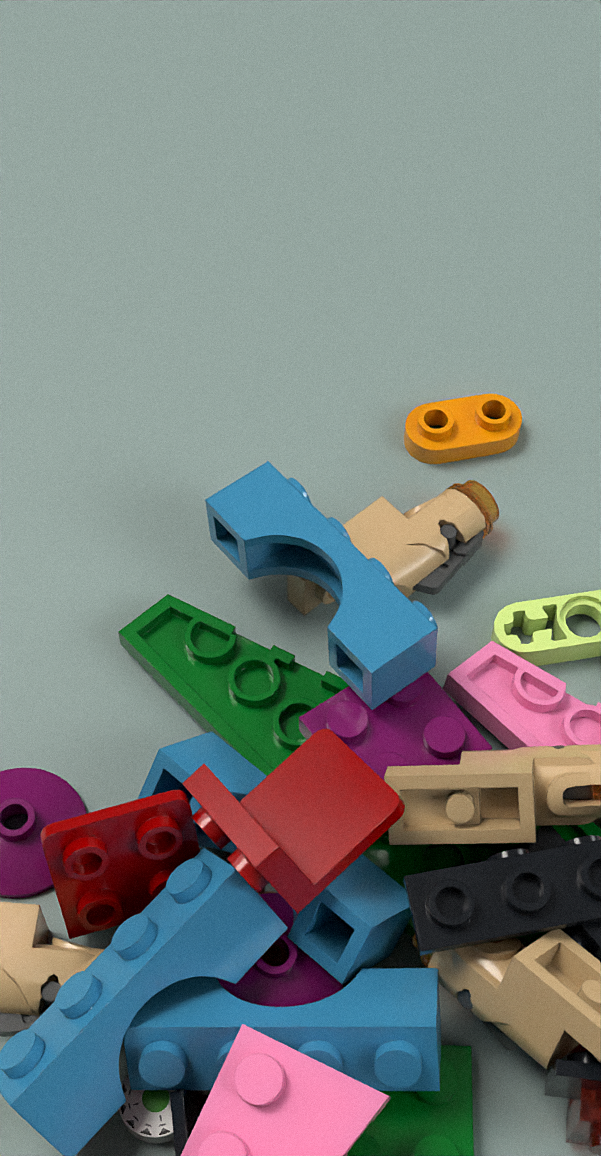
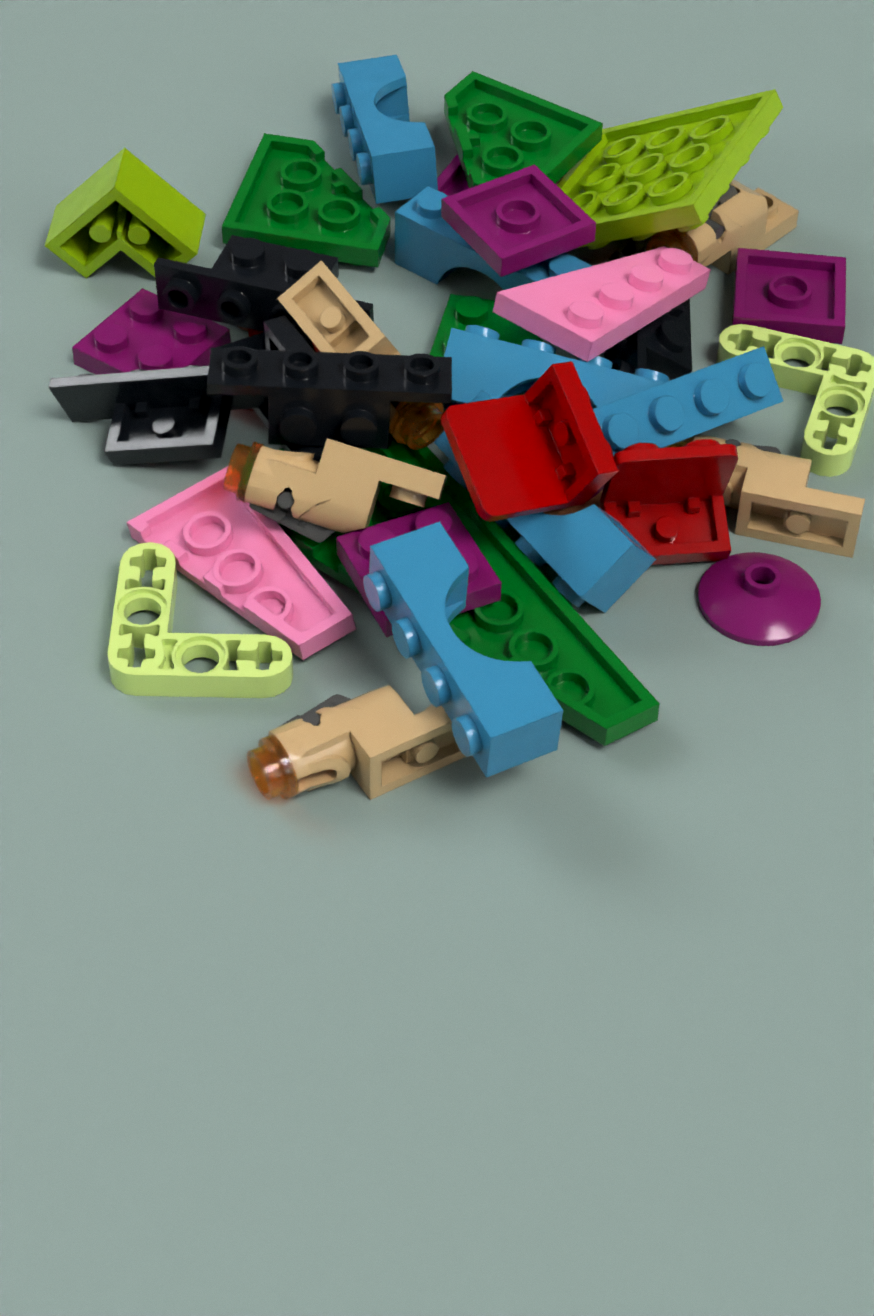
camera: 170 degrees left, 10 degrees down
(464, 429) = (245, 879): light orange plate -> none

